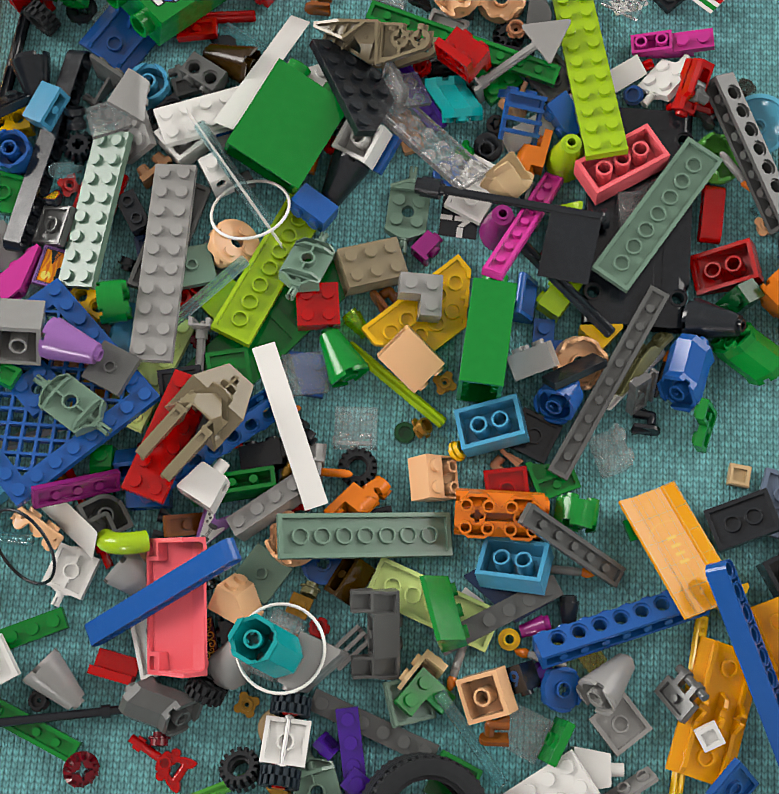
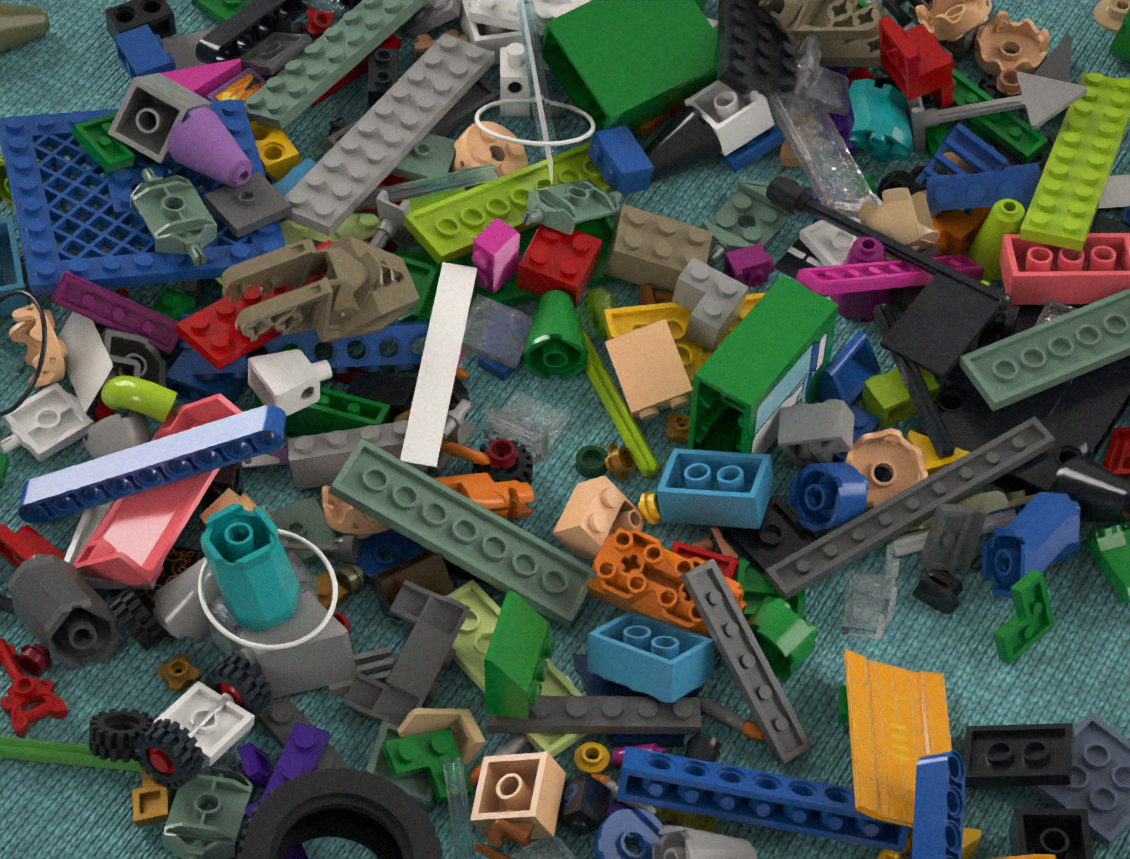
camera: 20 degrees right, 25 degrees down
(113, 301) = (296, 142): green brick -> none
(279, 325) = (495, 255): none -> dark pink brick
(298, 577) = (343, 548): none -> dark grey hinge
(349, 465) = (504, 448): none -> dark red plate
(540, 132) = (973, 189): none -> blue brick
(574, 371) = (867, 466): black tile -> none
(738, 475) = (1044, 709): tan tile -> none

